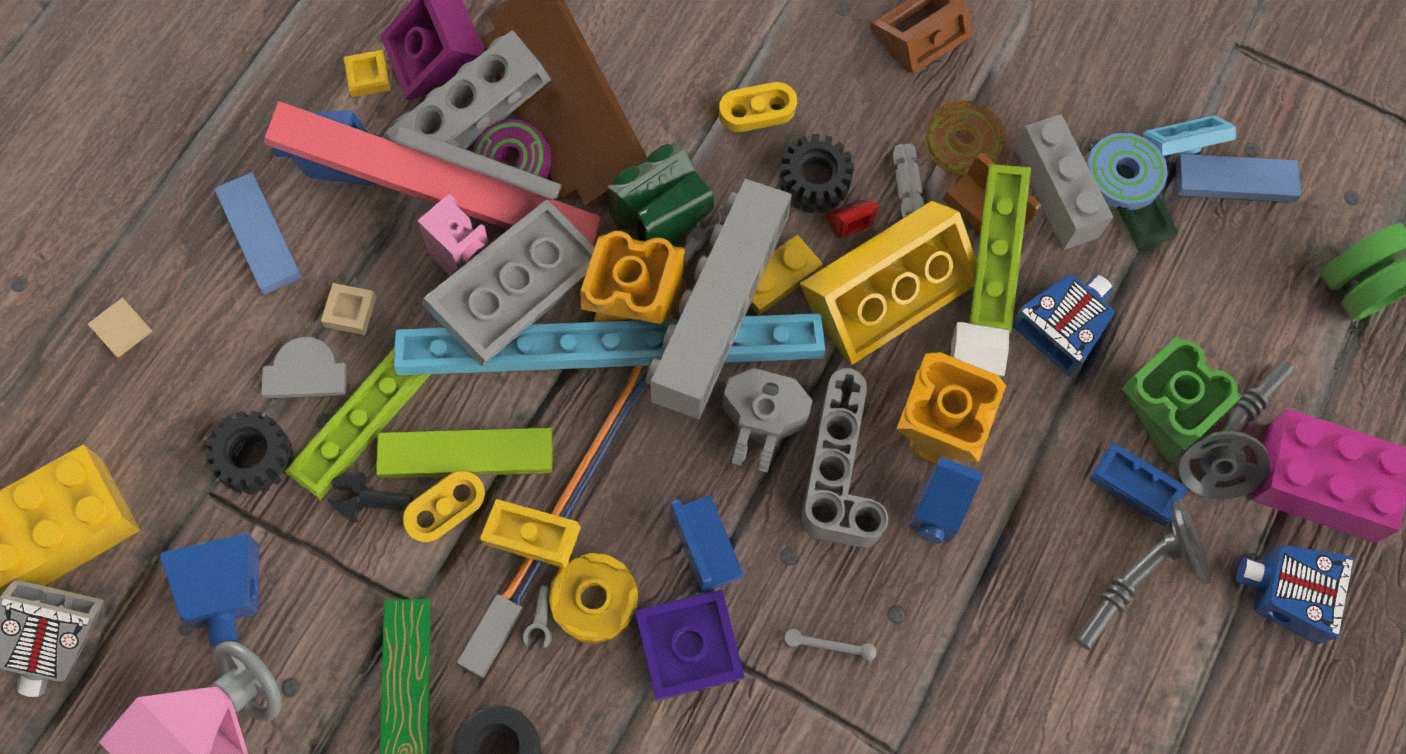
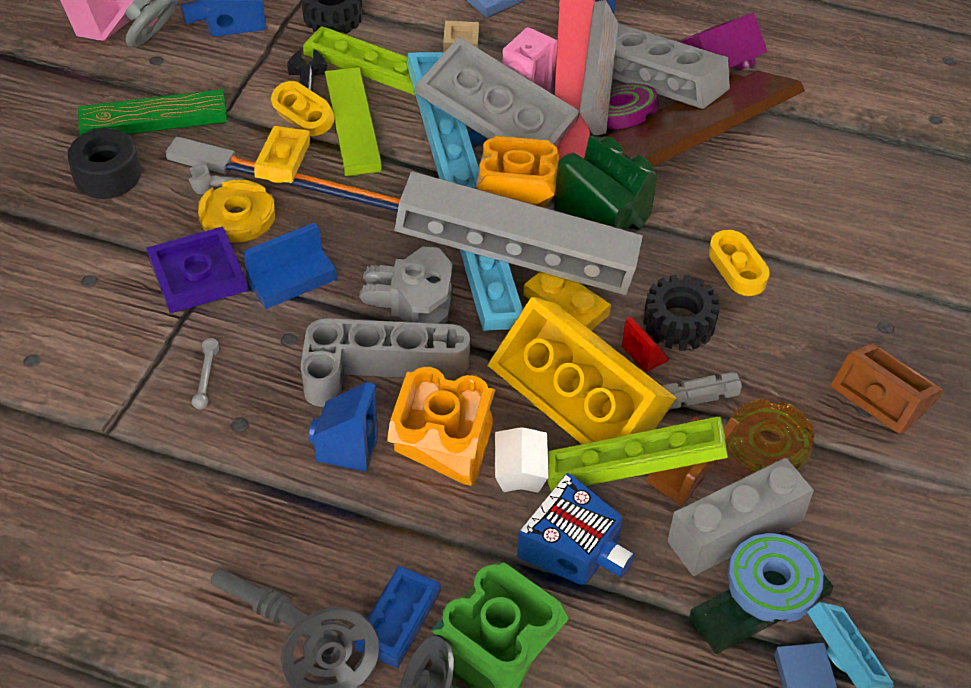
camera: 85 degrees right, 20 degrees down
(304, 370) = (404, 24): light grey piece -> none
(367, 73) = (677, 22): yellow tile -> none

